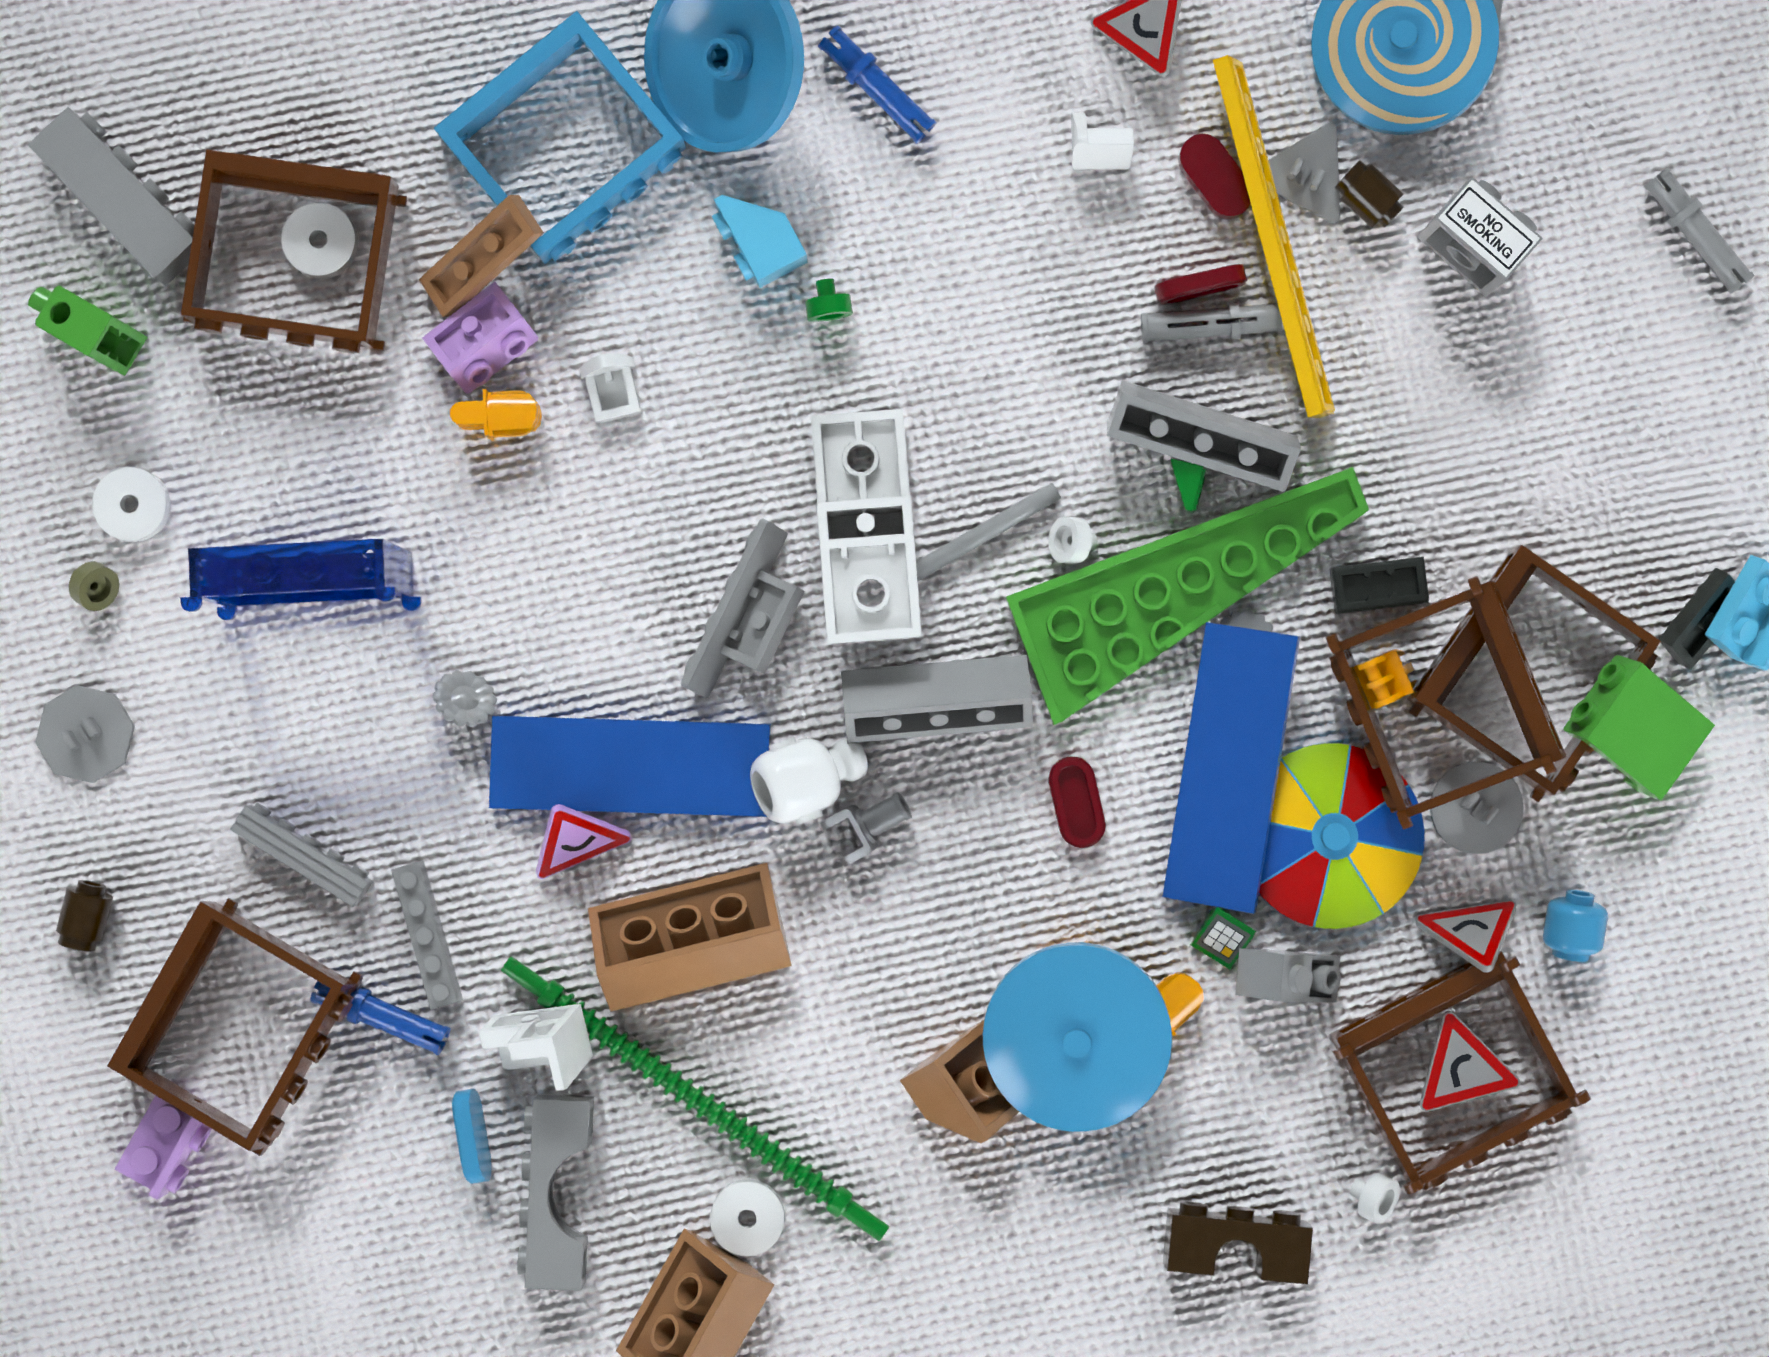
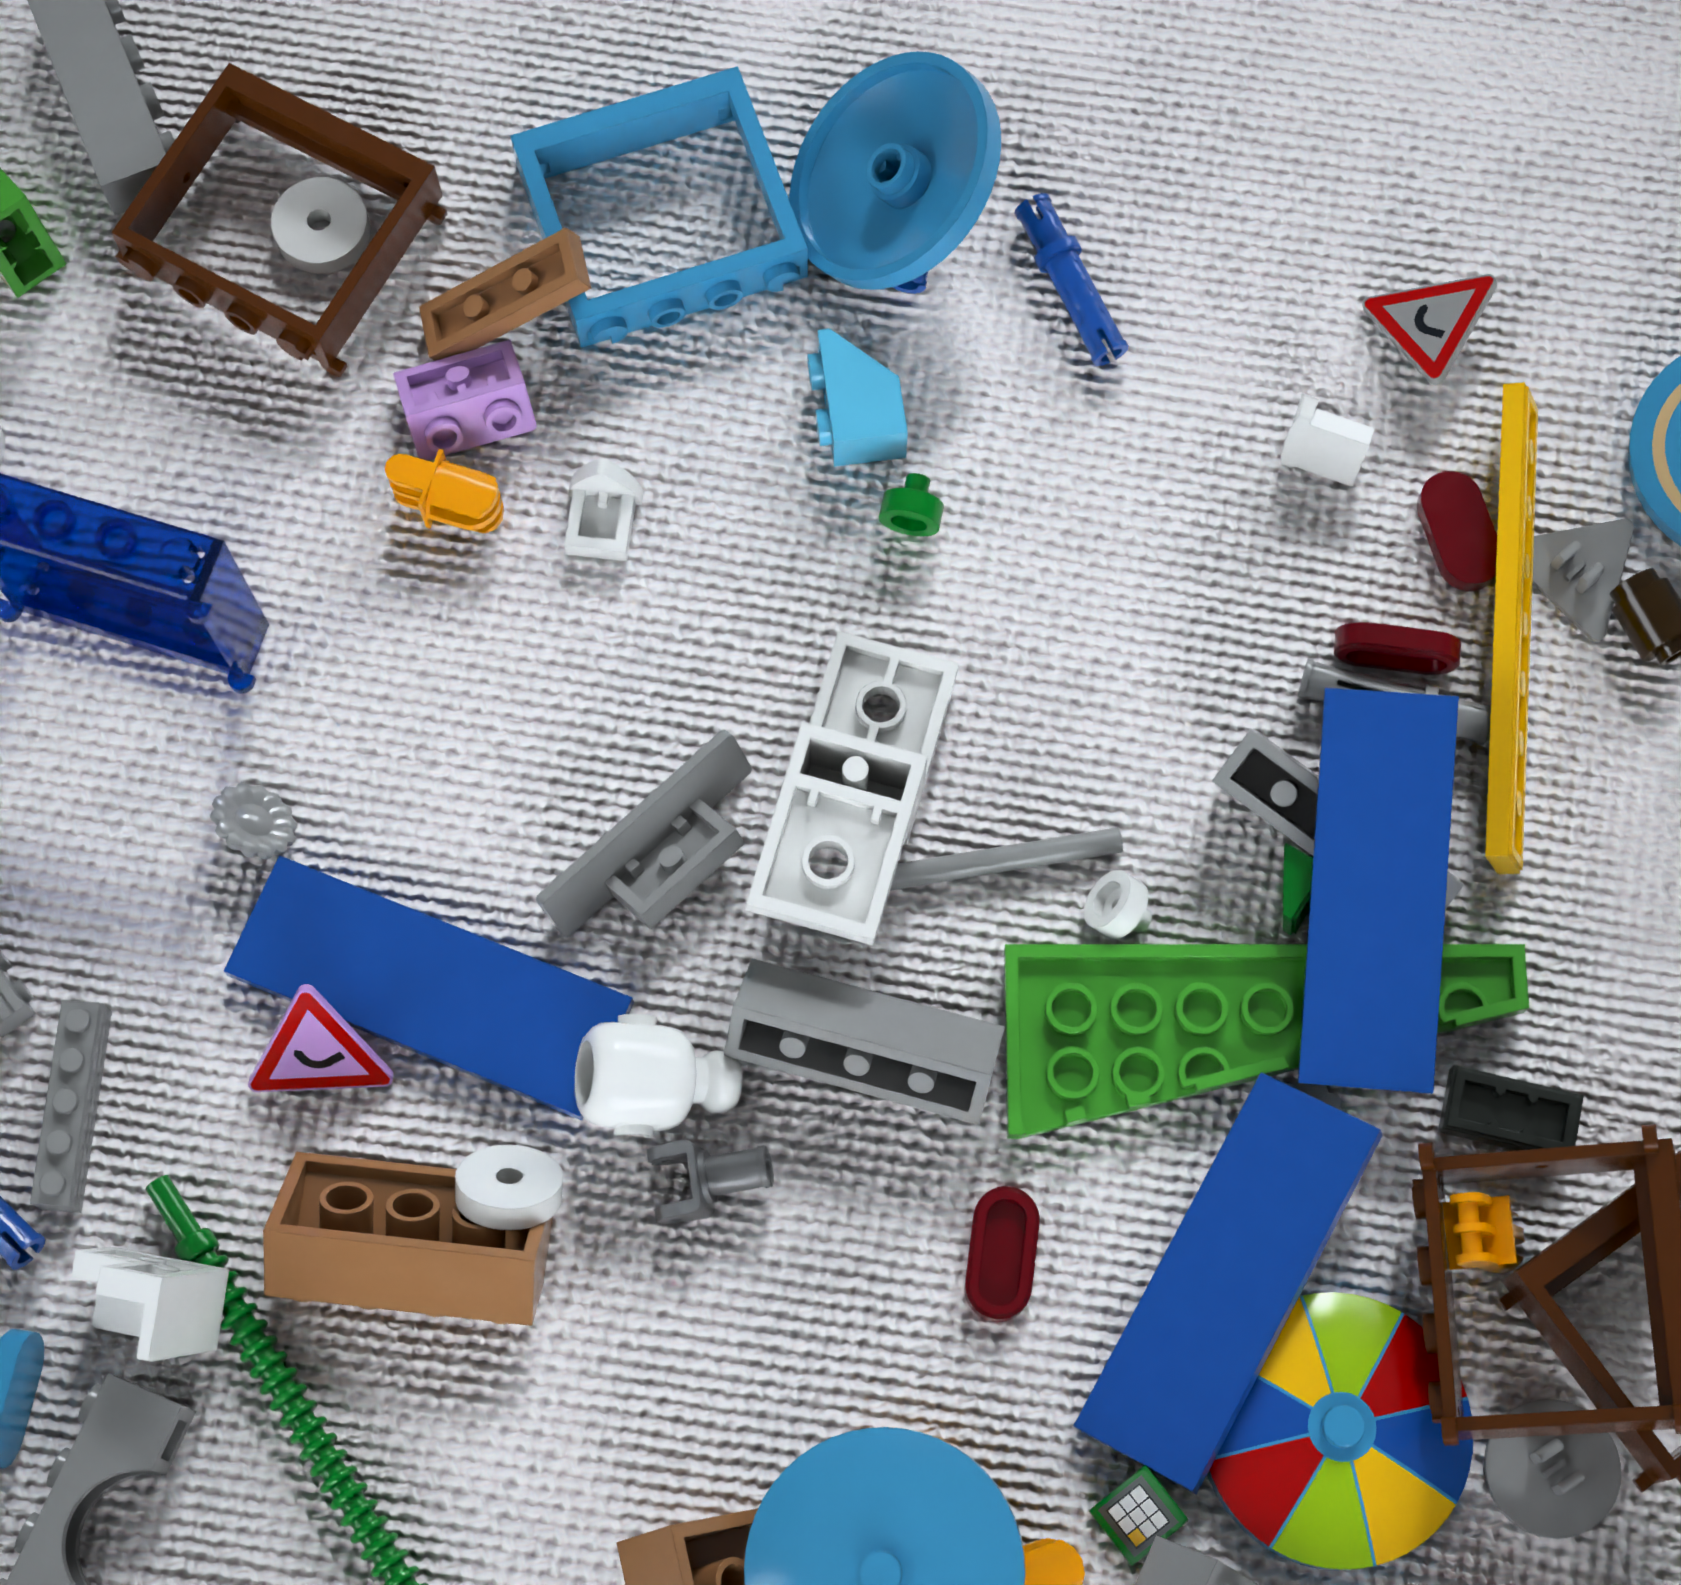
camera: 20 degrees right, 15 degrees down
(736, 899) = (508, 1187): none -> white piece
(1244, 472) = (1378, 890): none -> blue tile

